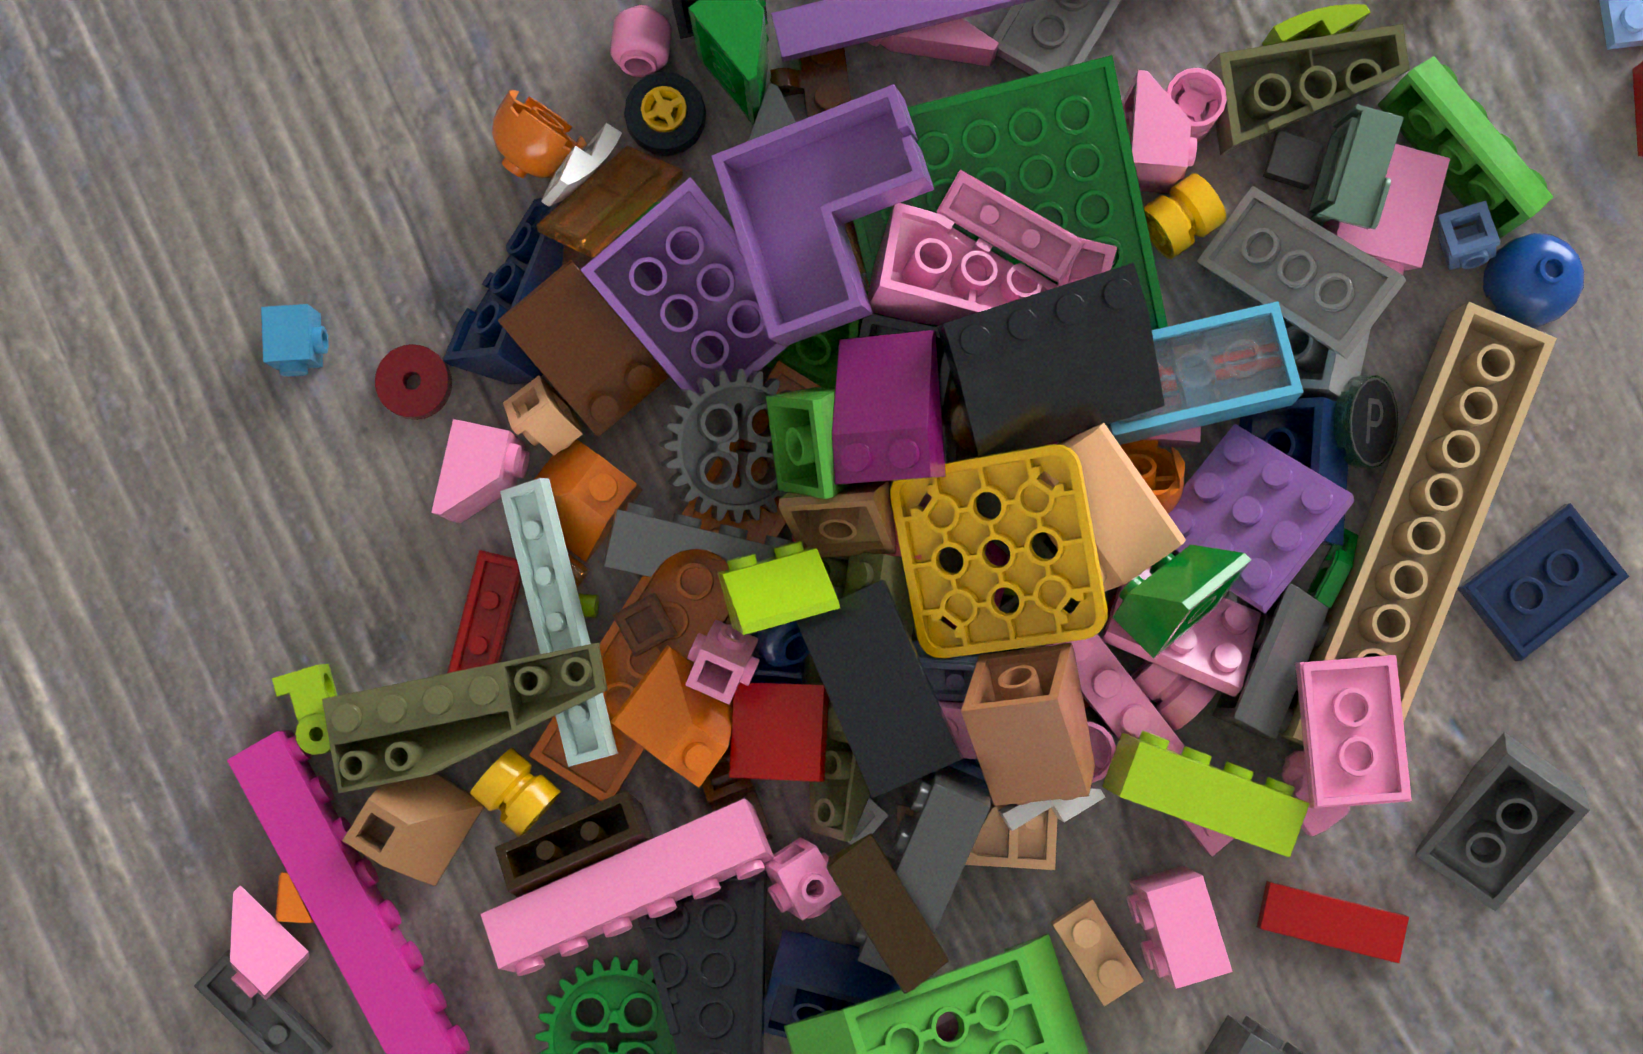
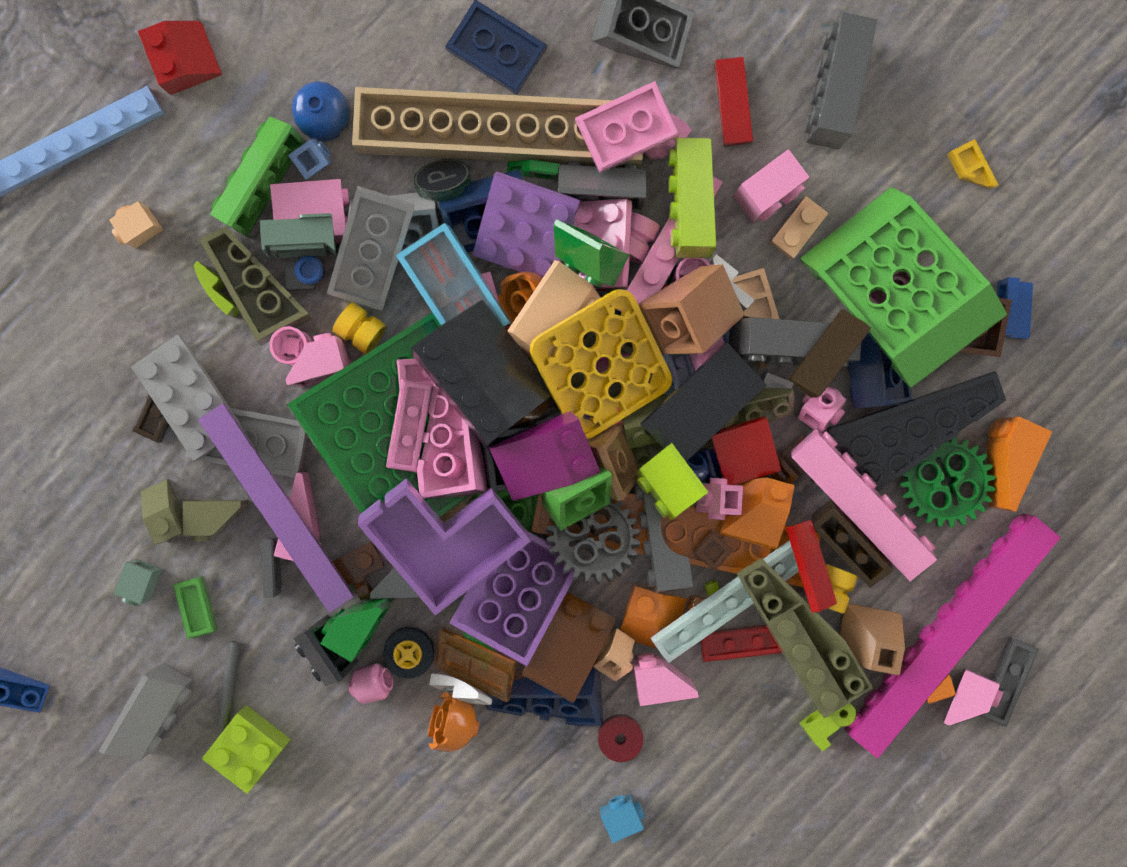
camera: 110 degrees left, 5 degrees up
(564, 765) = (811, 566): none -> red tile
(1296, 174) = (309, 270): none -> blue tile

